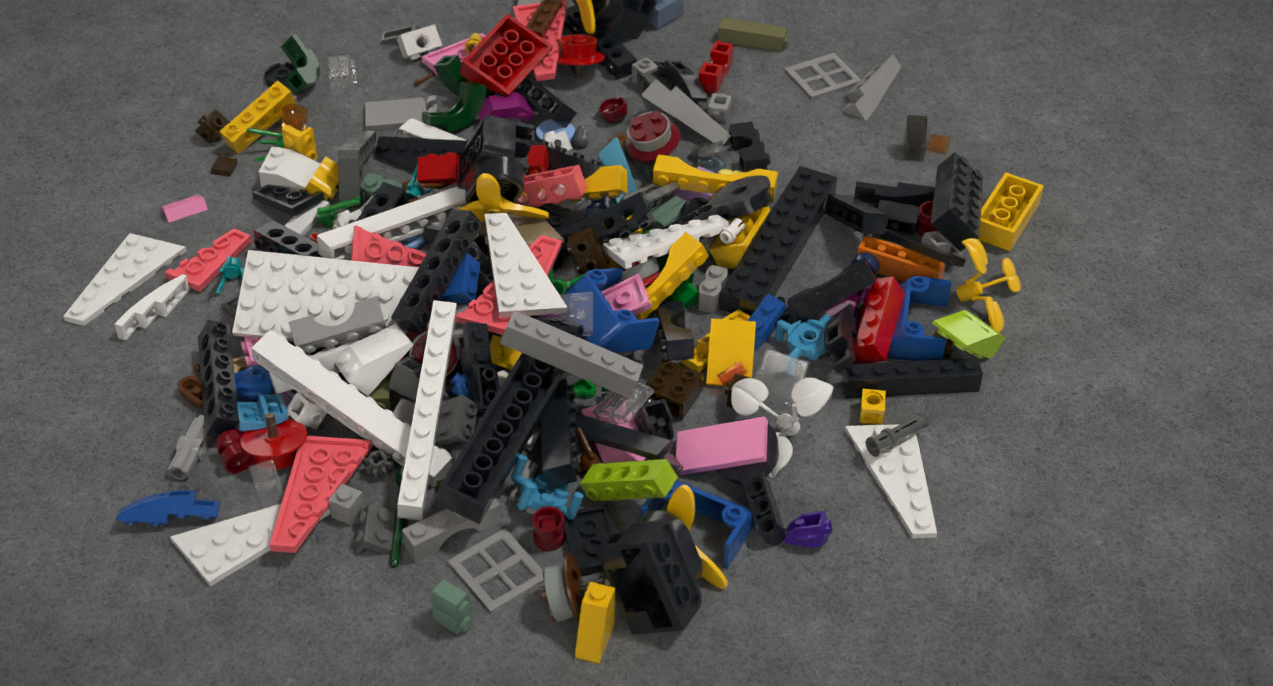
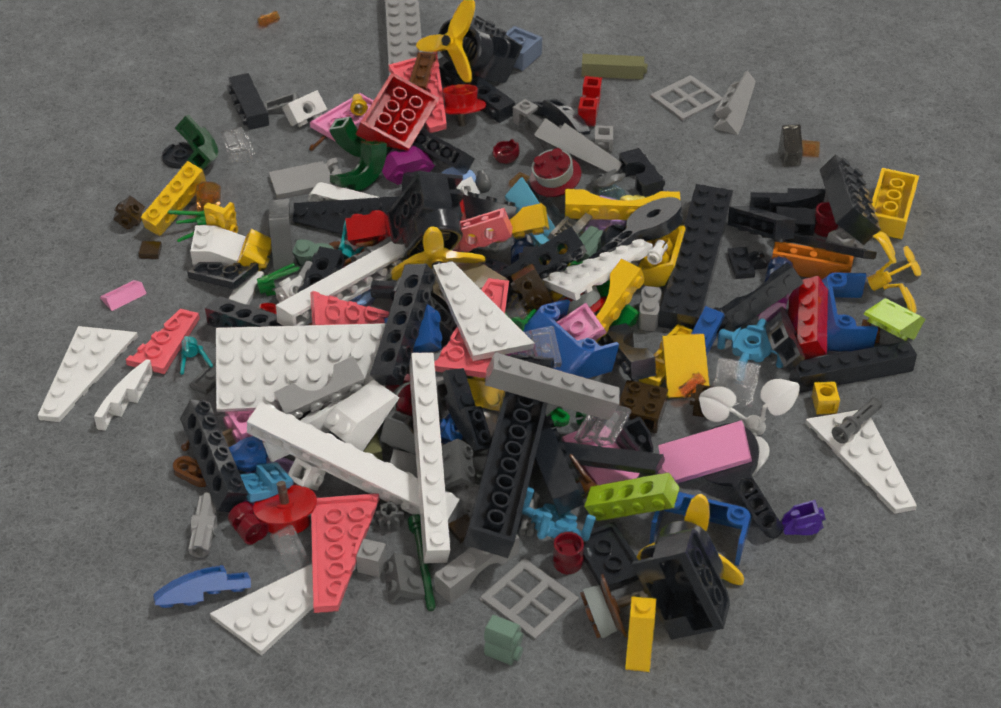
camera: 10 degrees left, 0 degrees up
(365, 29) = (247, 101): none -> black brick
(827, 253) = (742, 262): none -> black hinge

